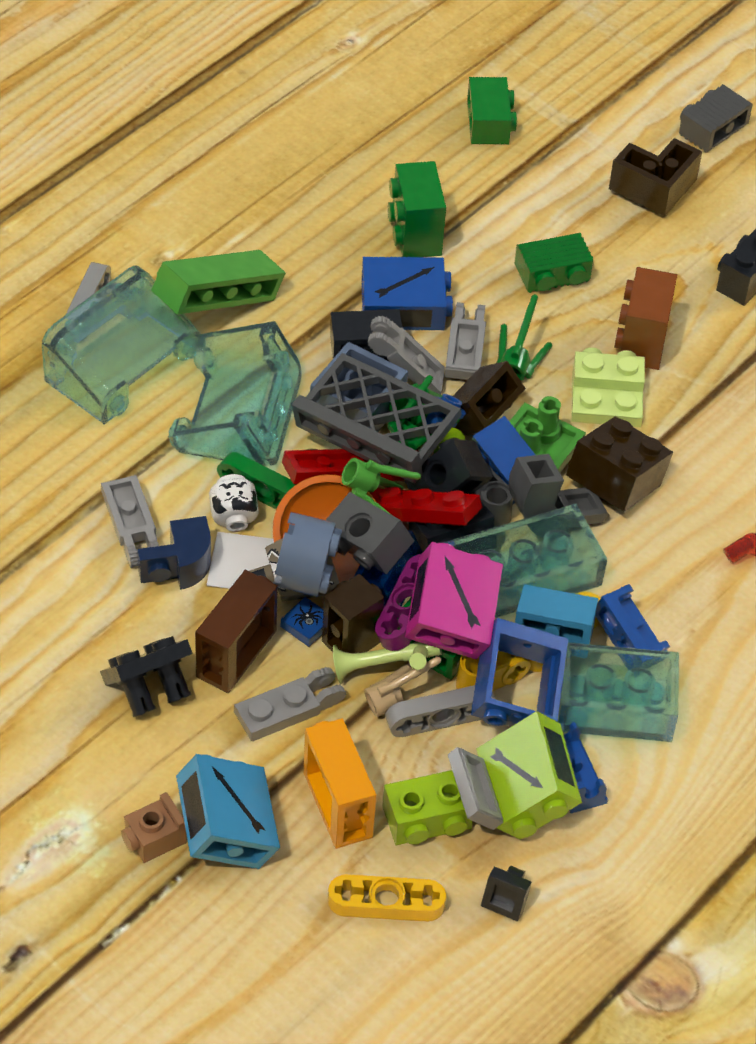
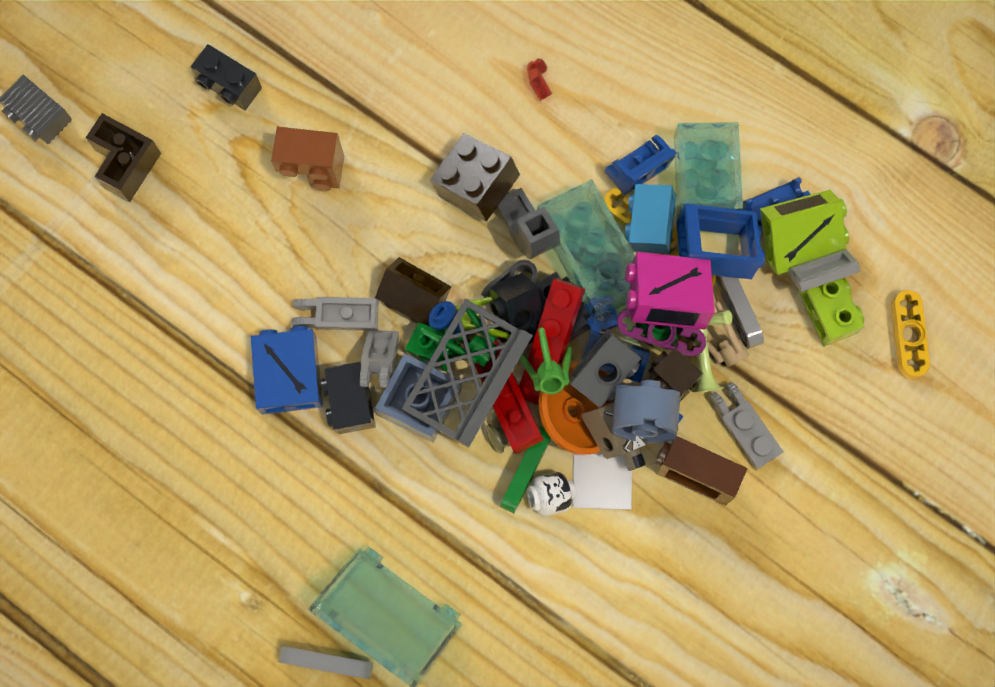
camera: 90 degrees left, 25 degrees up
(129, 515) = (575, 582): light grey hinge -> none
(154, 829) = (877, 516): medium nougat brick -> none
(158, 656) = (743, 541): black plate -> none
(185, 558) = (613, 523): dark blue brick -> none
(218, 281) = (310, 535): bright green brick -> none
(227, 811) = (874, 457): dark azure brick -> none
(244, 397) = (435, 504): clear light blue windscreen -> none
(339, 783) = (834, 373): light orange window -> none
(417, 209) = (189, 363): green brick -> none
(490, 110) = (37, 311): green brick -> none
(501, 446) = (481, 266): blue hinge -> none
(506, 892) = (893, 246): black tile -> none
(517, 355) = (357, 268): green plant -> none
(546, 432) = (450, 248): bright green plate -> none
(554, 262) = (235, 243): green brick -> none
(607, 387) = (378, 194): yellowish green plate -> none

